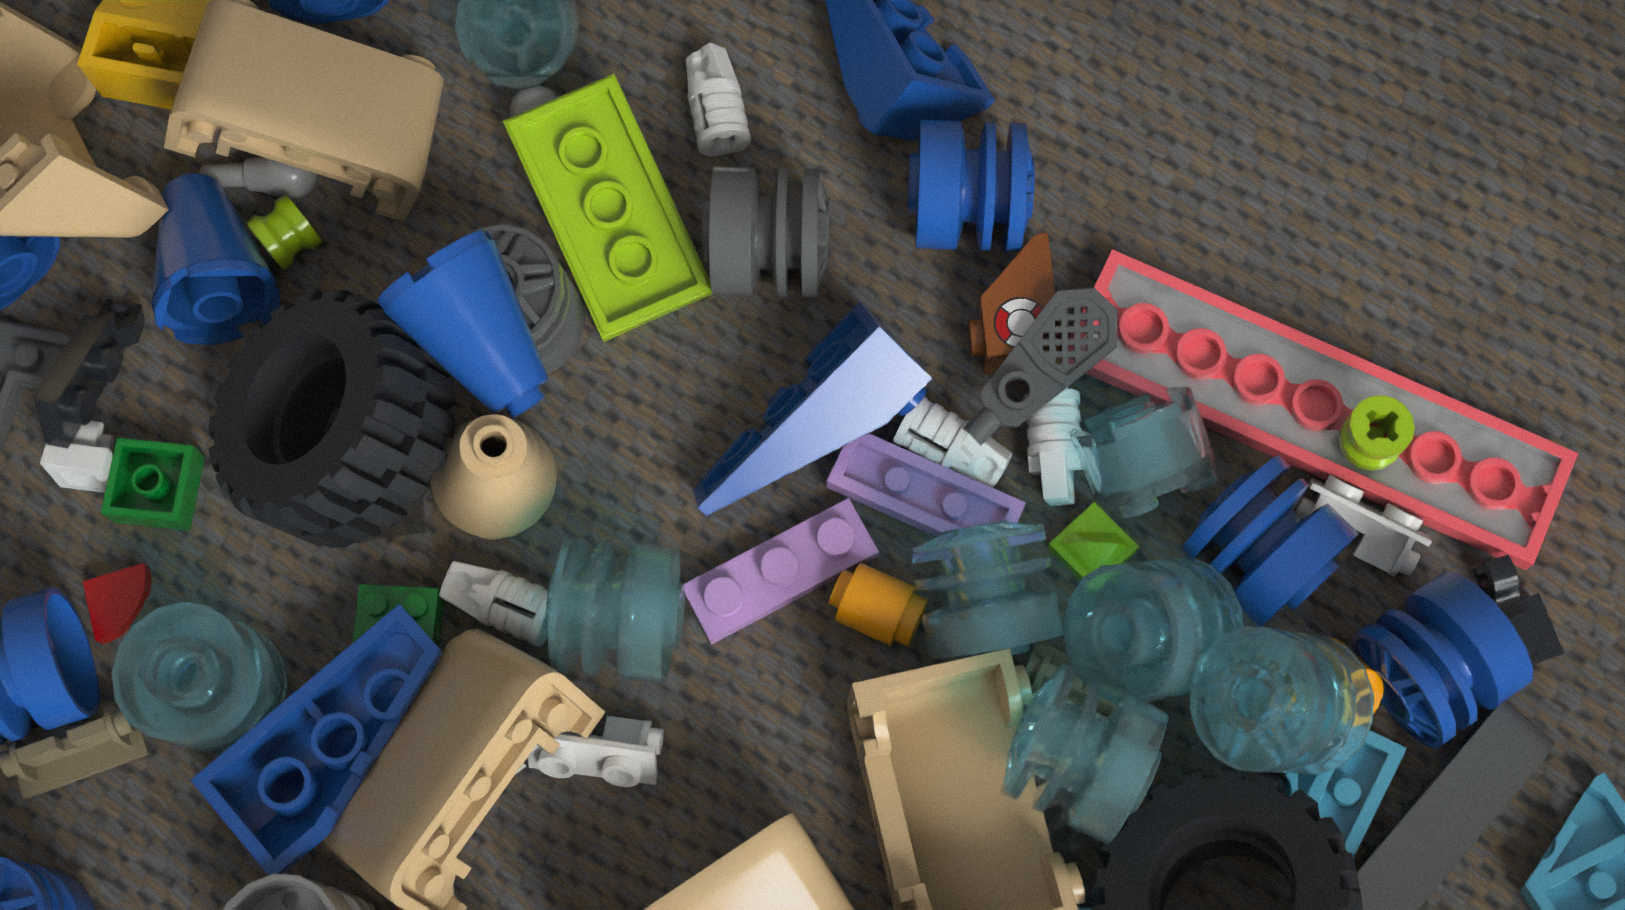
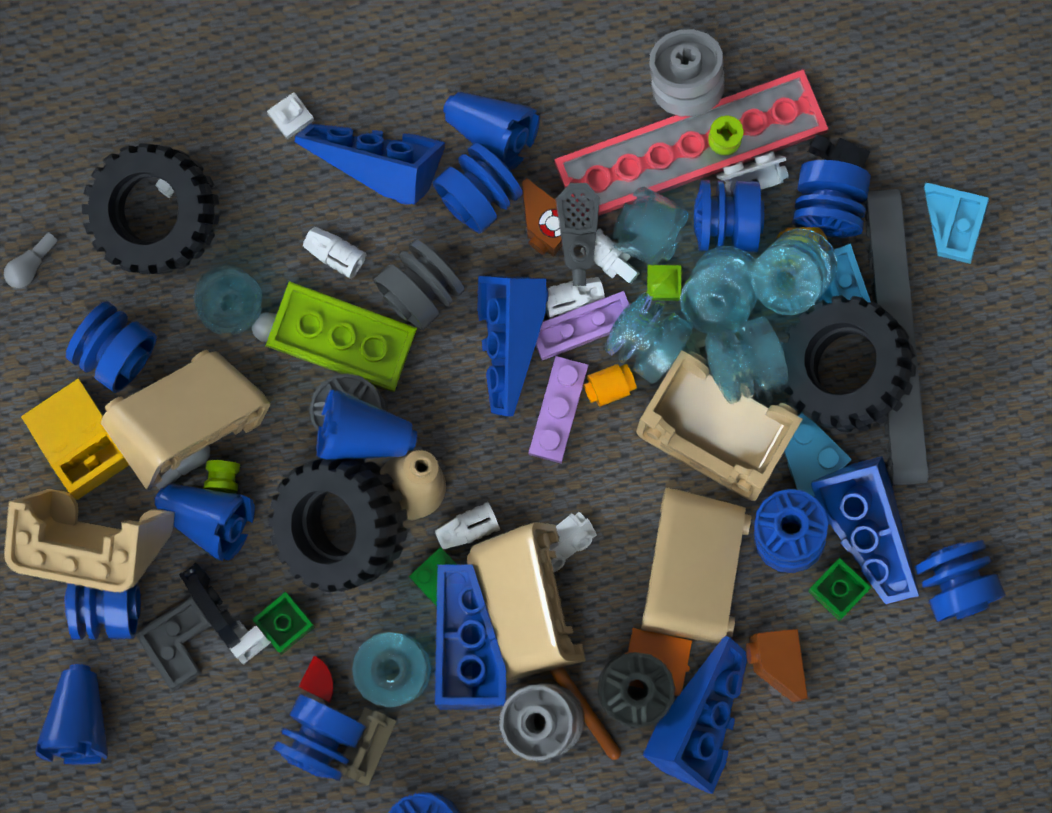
camera: 50 degrees left, 5 degrees up
(613, 609) = (525, 479): clear light blue wheel -> none
(1078, 137) = (493, 124): none -> blue cone
(1407, 303) = (687, 72): none -> light grey wheel

